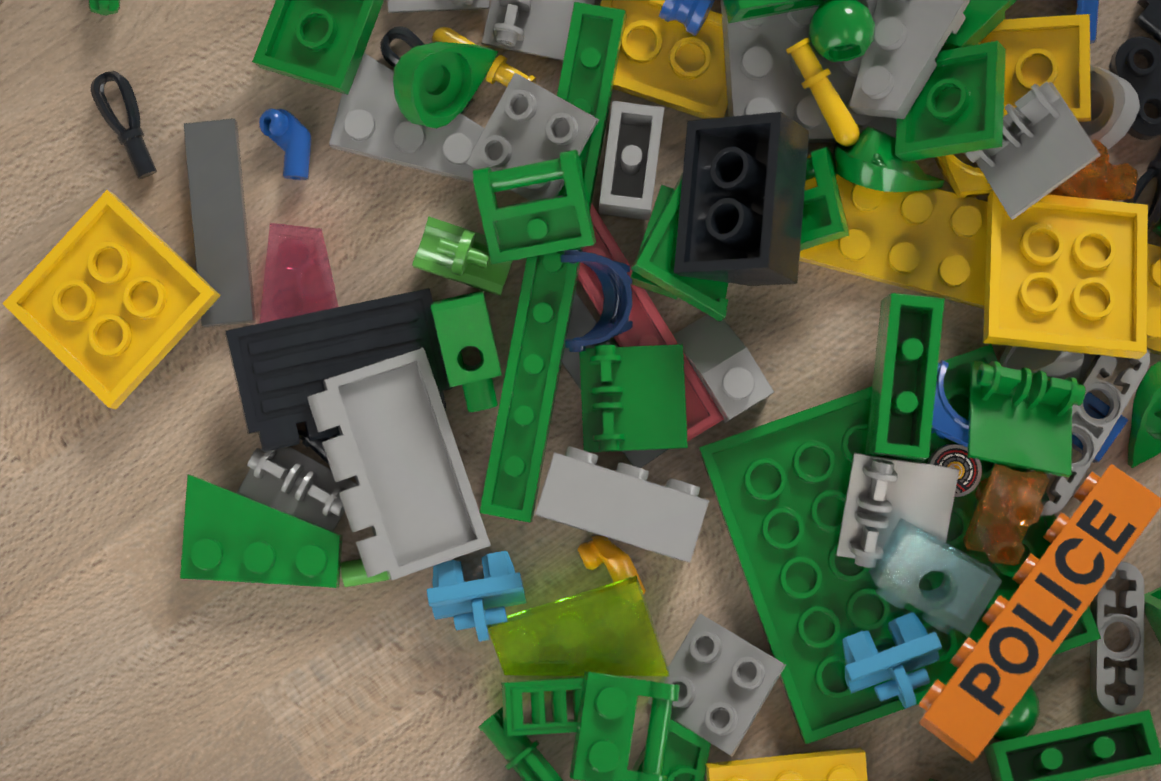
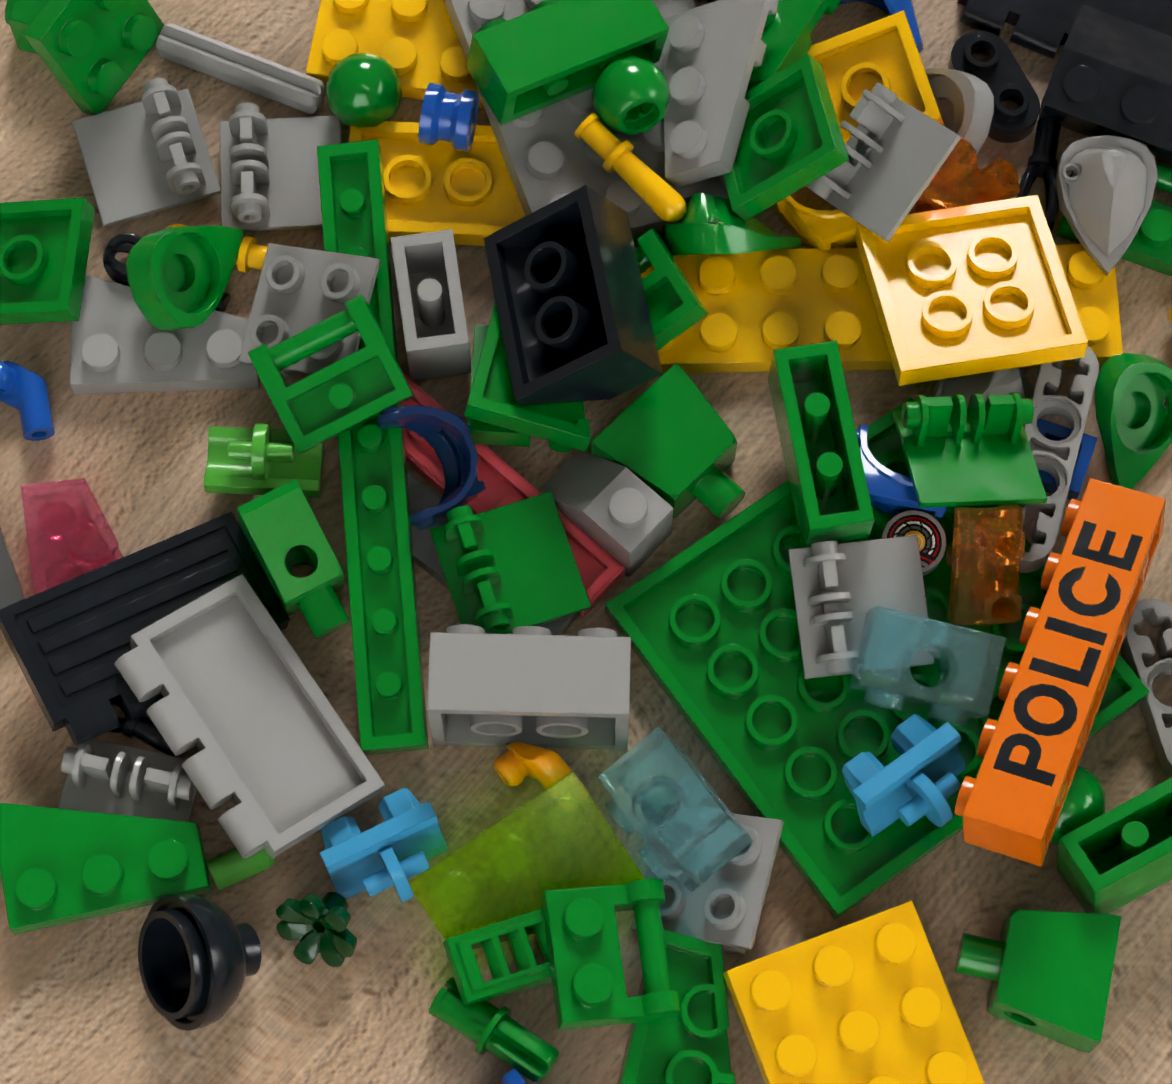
camera: 15 degrees left, 15 degrees down
(313, 643) = (194, 959): none -> black piece
(413, 639) = (318, 927): none -> dark green plant
(724, 654) = (701, 830): none -> clear light blue brick
(790, 334) = (675, 445): none -> green torso

